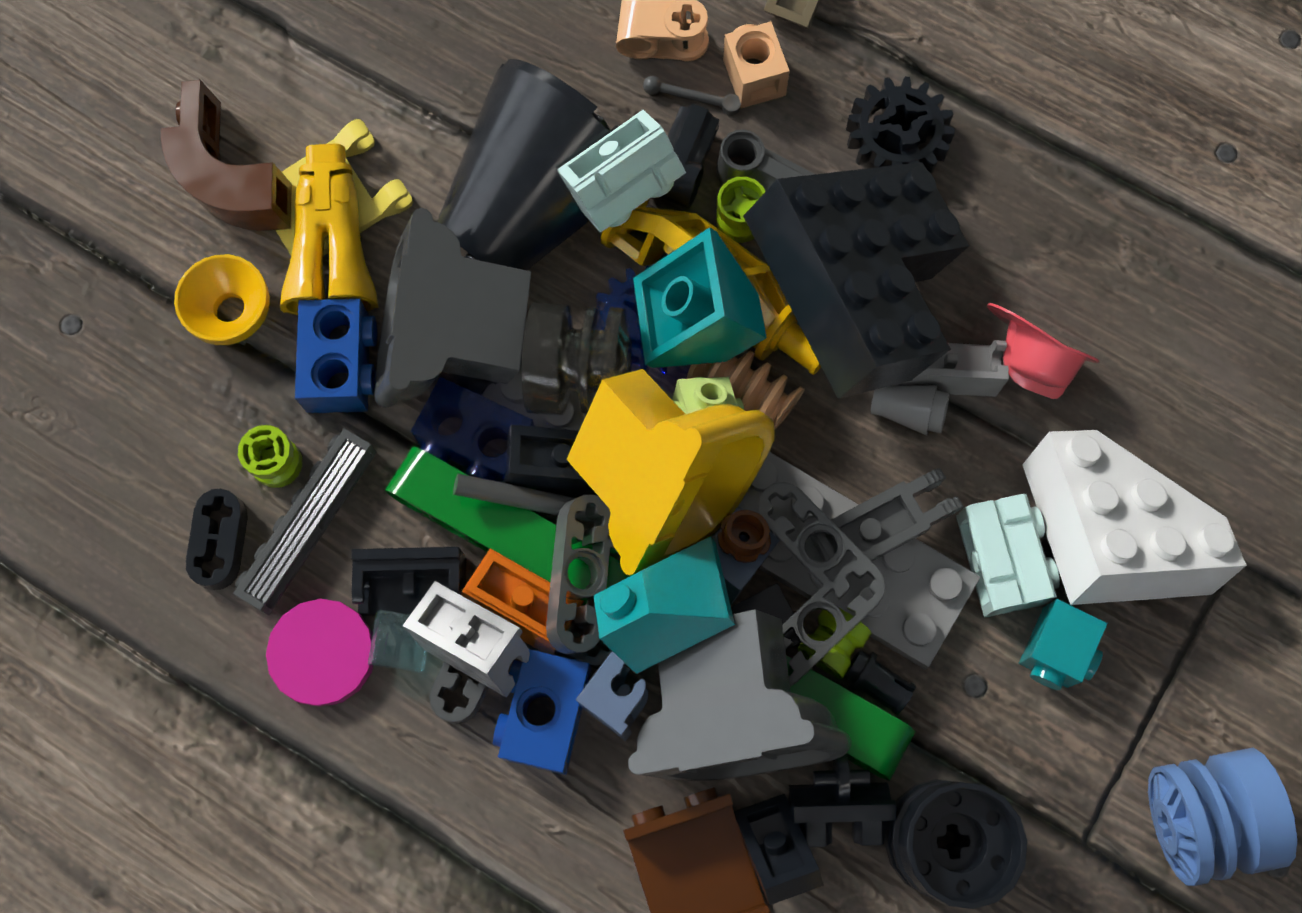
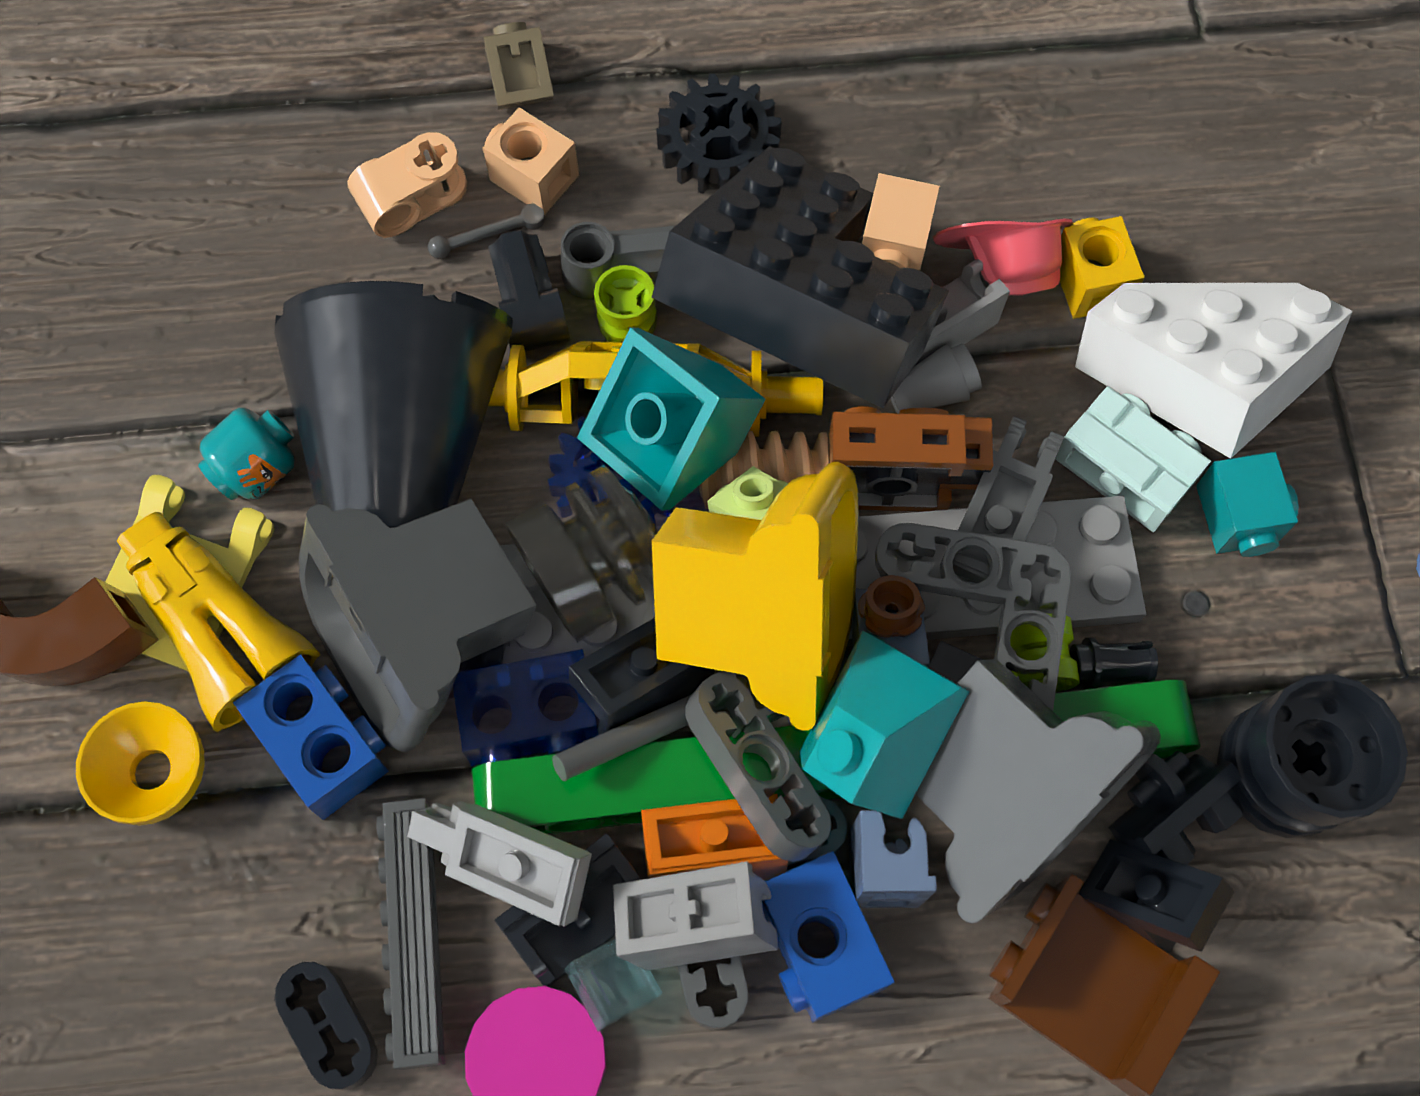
camera: 40 degrees left, 5 degrees down
(278, 464) = (335, 895): lime wheel -> none
(383, 516) = (505, 859): none -> light grey hinge
(425, 144) = (247, 454): none -> teal head
(622, 171) = (494, 333): light aqua brick -> none
(839, 443) = (910, 455): none -> dark orange piece
(960, 284) = (900, 220): none -> light nougat brick
(1110, 386) = (1099, 241): none -> yellow brick

